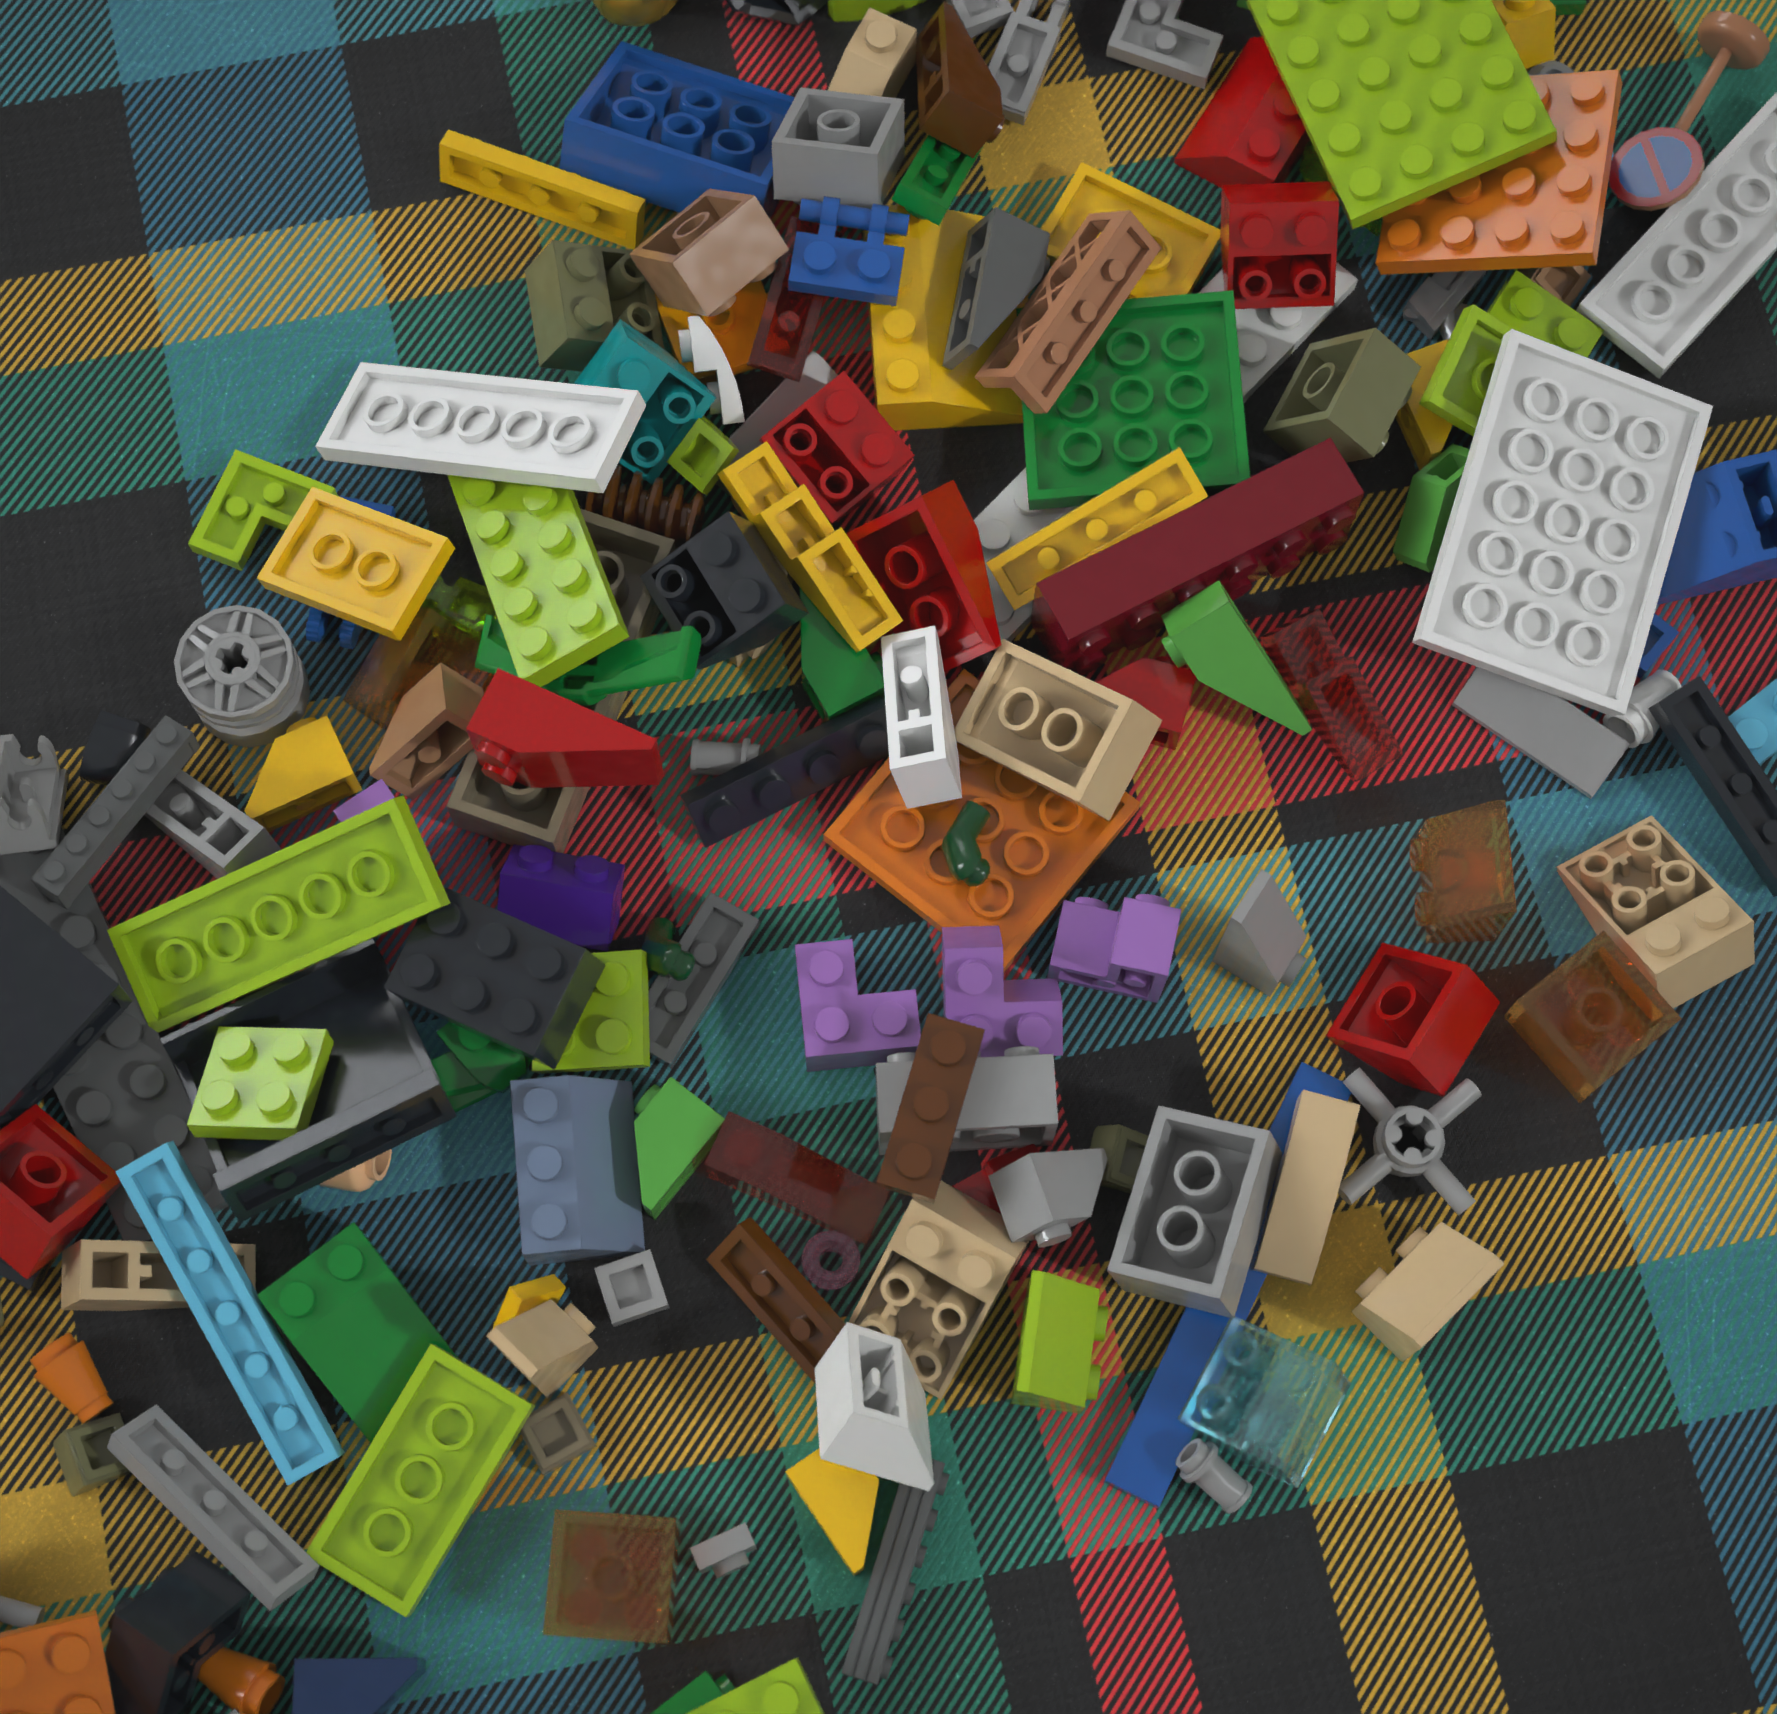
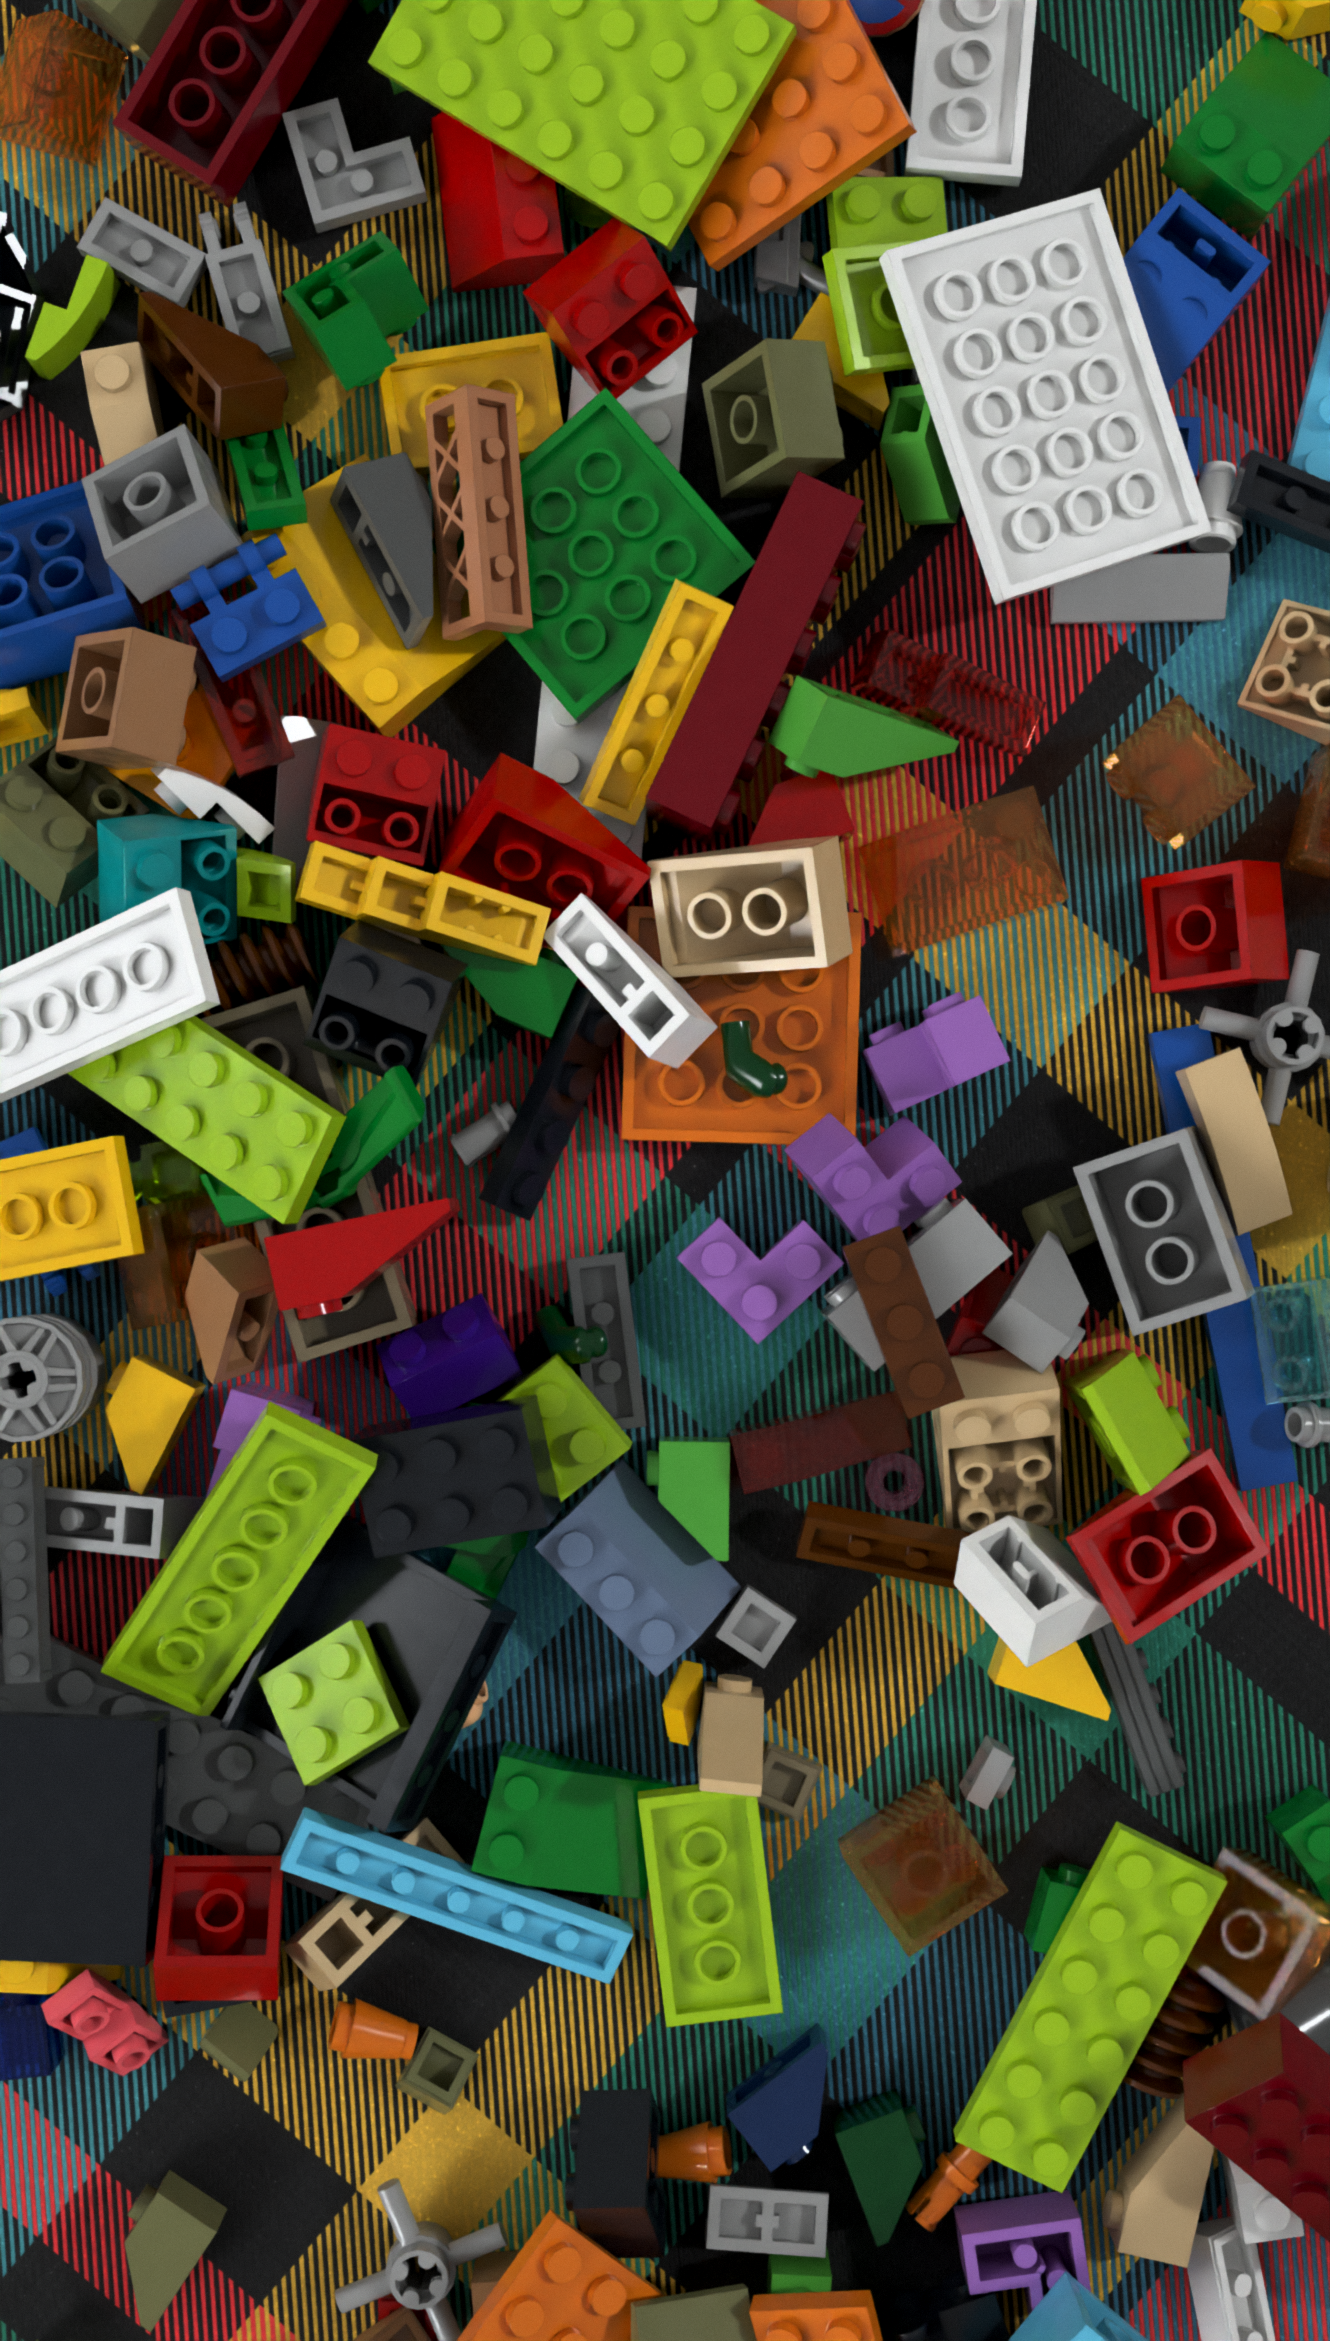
camera: 35 degrees left, 15 degrees up
(213, 1507) = (565, 2047): light grey plate -> none
(1009, 1457) = (1167, 1546): none -> red slope
(1094, 115) = (354, 306): none -> green brick
(1233, 822) = (964, 872): none -> clear orange slope
(1262, 938) = (1051, 960): light grey slope -> none

